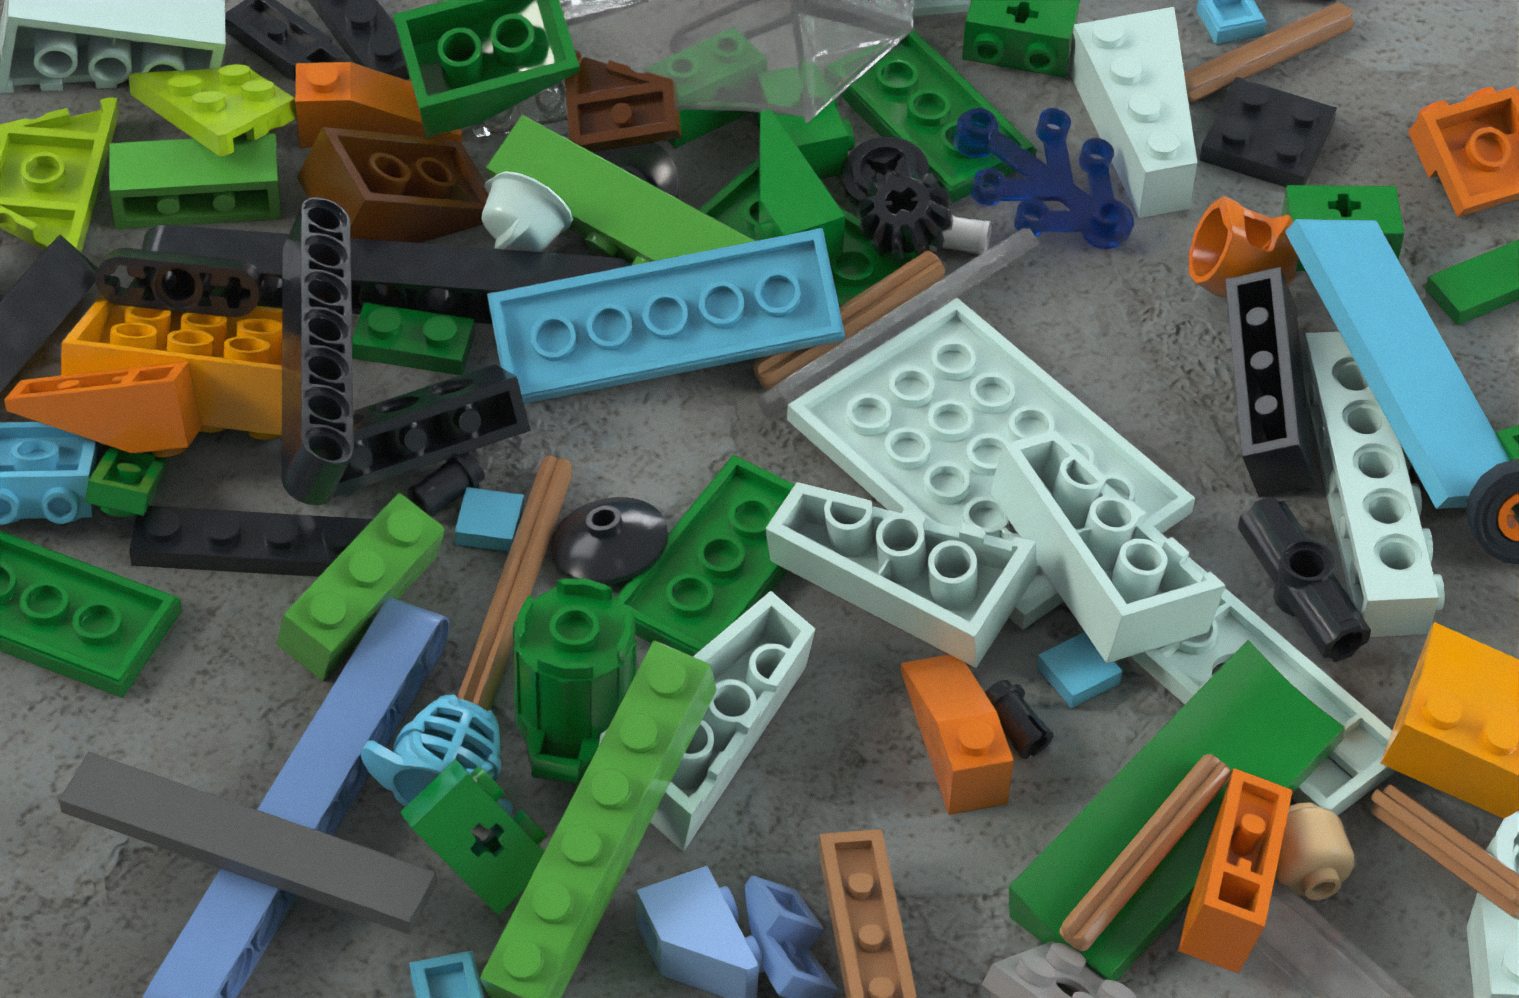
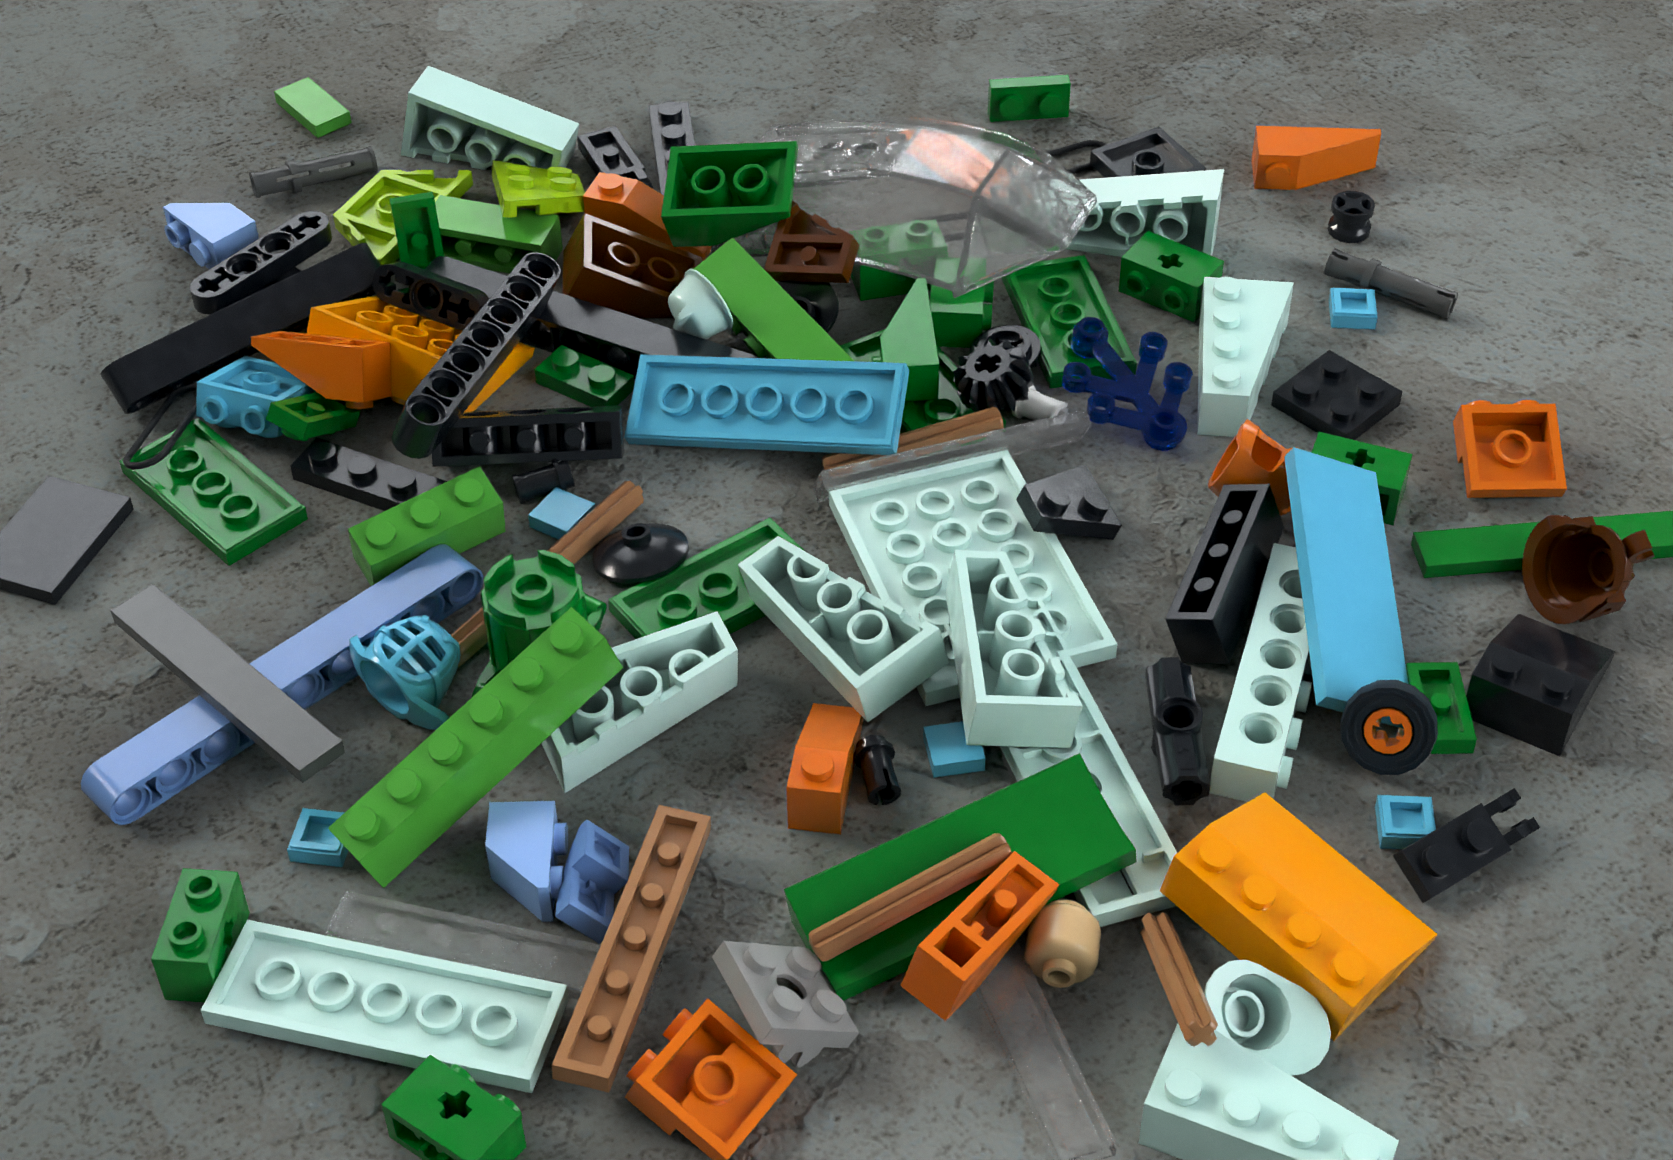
camera: 25 degrees right, 5 degrees down
(117, 202) = (417, 228): none -> green plate
(449, 811) = (375, 700): green brick -> none
(1059, 347) = (1069, 505): none -> black wing
(1268, 51) = (1366, 338): medium nougat axle -> none

